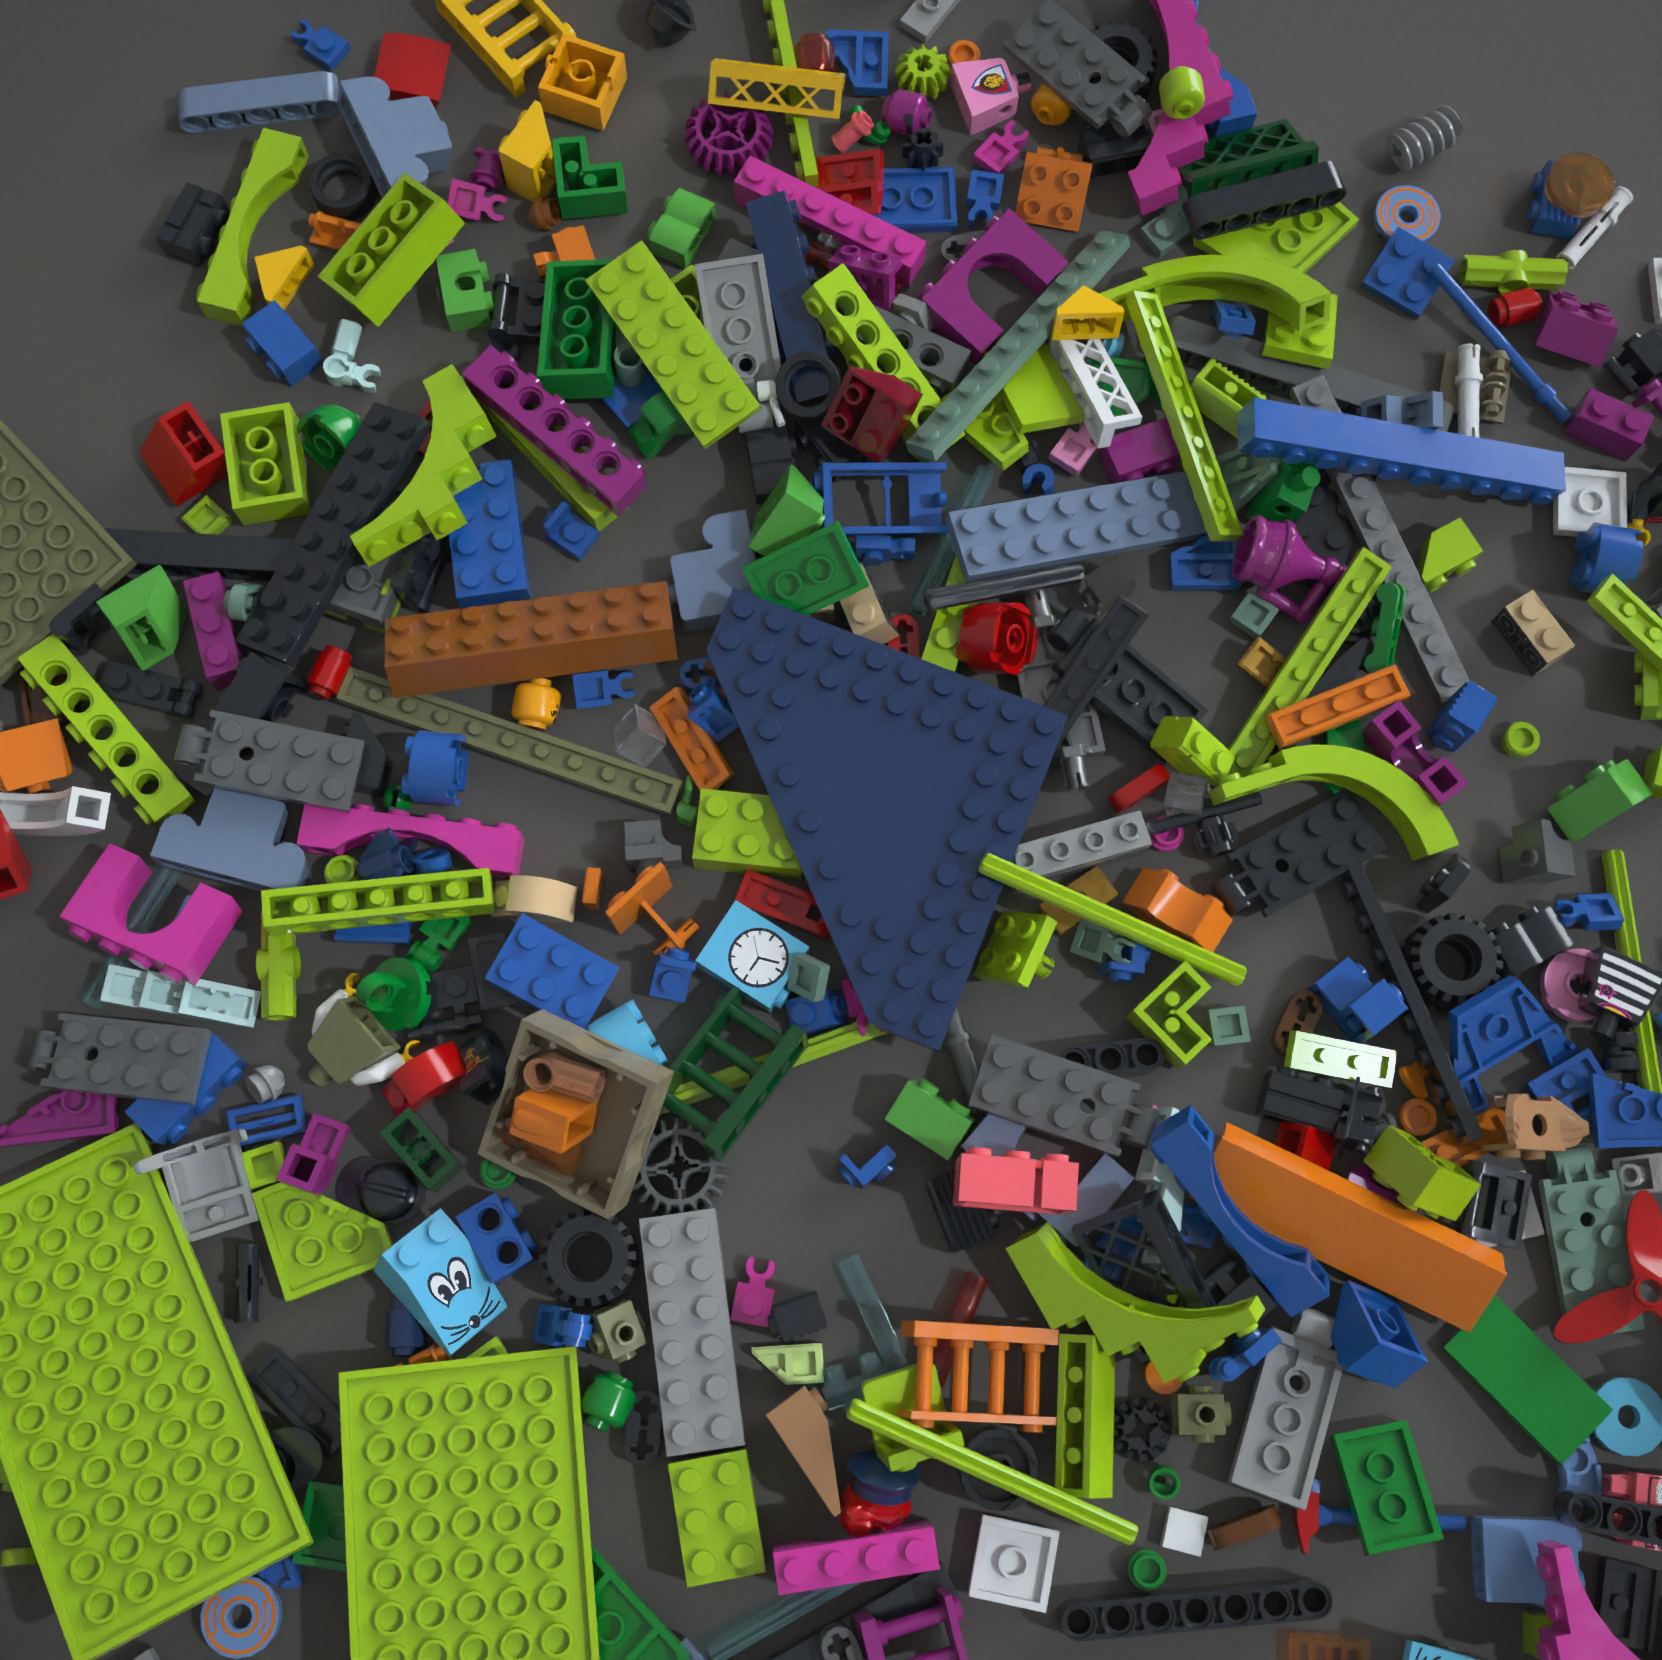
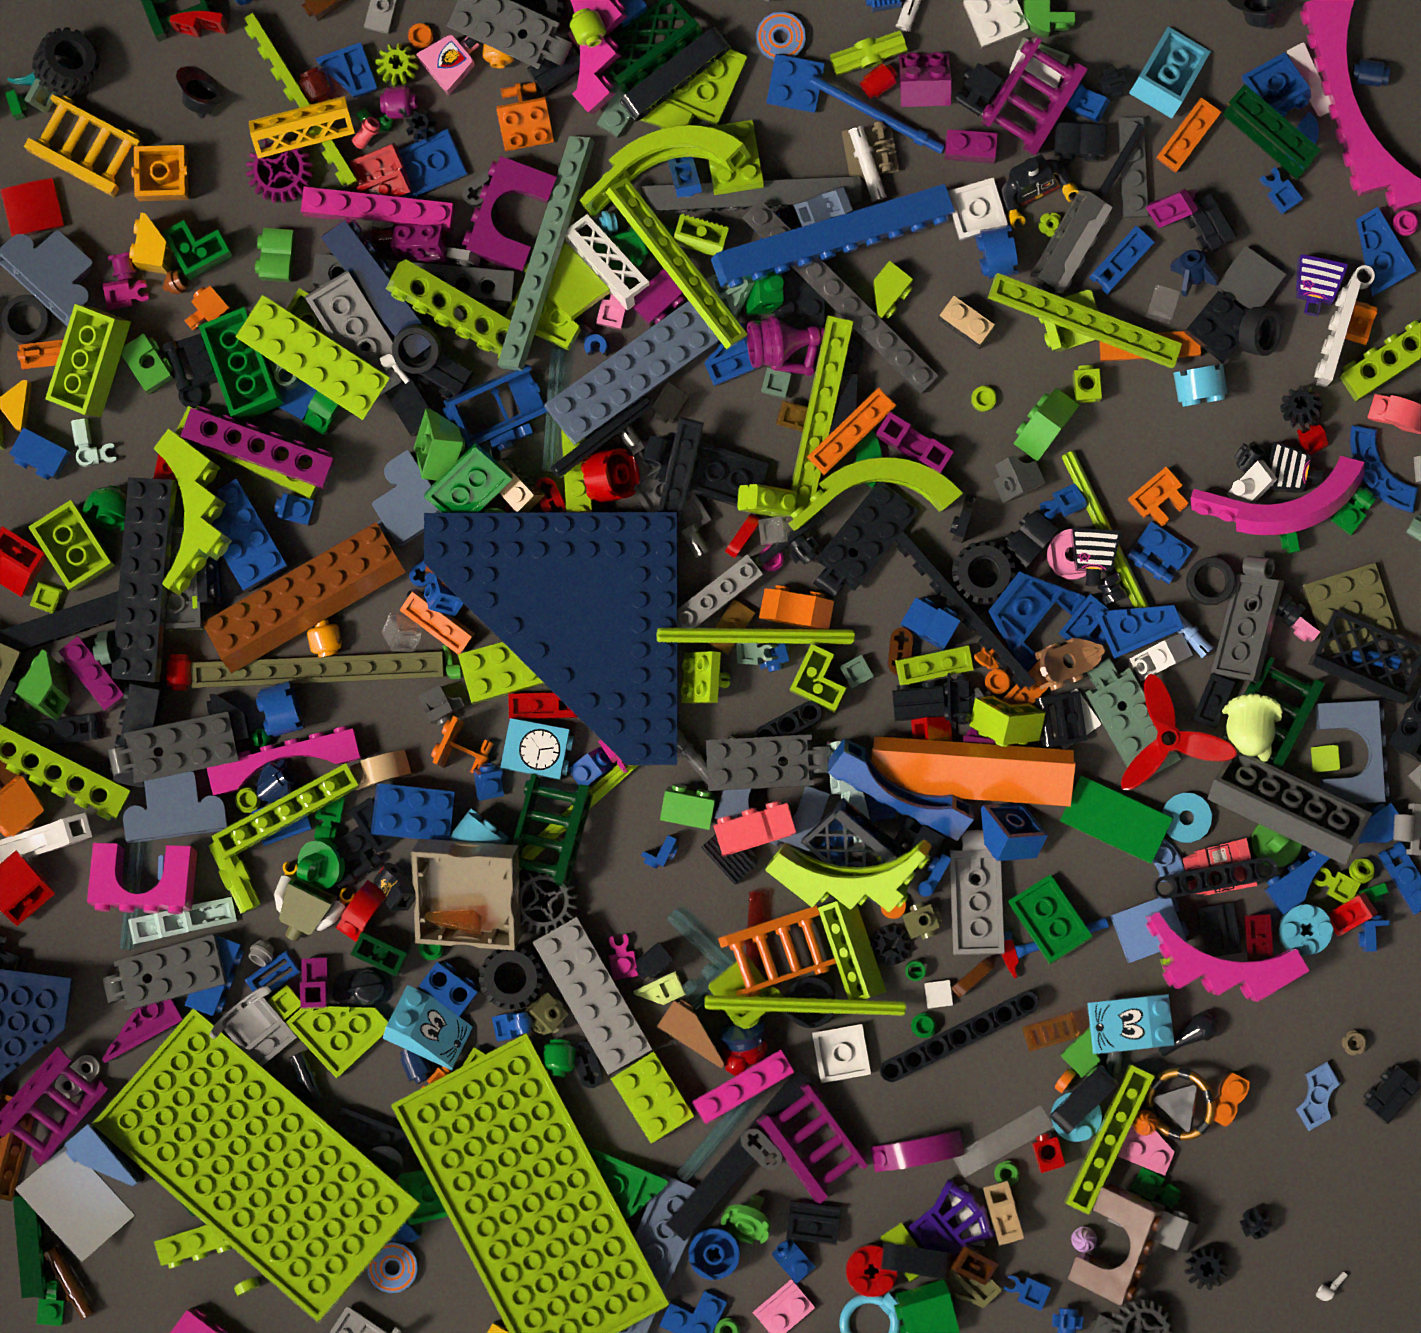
camera: 10 degrees left, 10 degrees up
(433, 860) = (304, 770): blue tile -> none
(553, 1119) = (455, 901): orange torso -> none
(567, 1076) = (453, 875): nougat piece -> none
(592, 889) = (414, 746): orange tile -> none
(596, 687) = (360, 611): blue plate -> none
(808, 977) = (576, 749): sand green plate -> none
(871, 411) = (466, 352): dark red slope -> none
(983, 195) = (476, 142): blue plate -> none
(1000, 152) = (475, 105): dark pink plate -> none
(1087, 317) = (584, 217): yellow slope -> none
(1387, 626) = (866, 360): green plate -> none
(1461, 717) = (935, 405): blue brick -> none

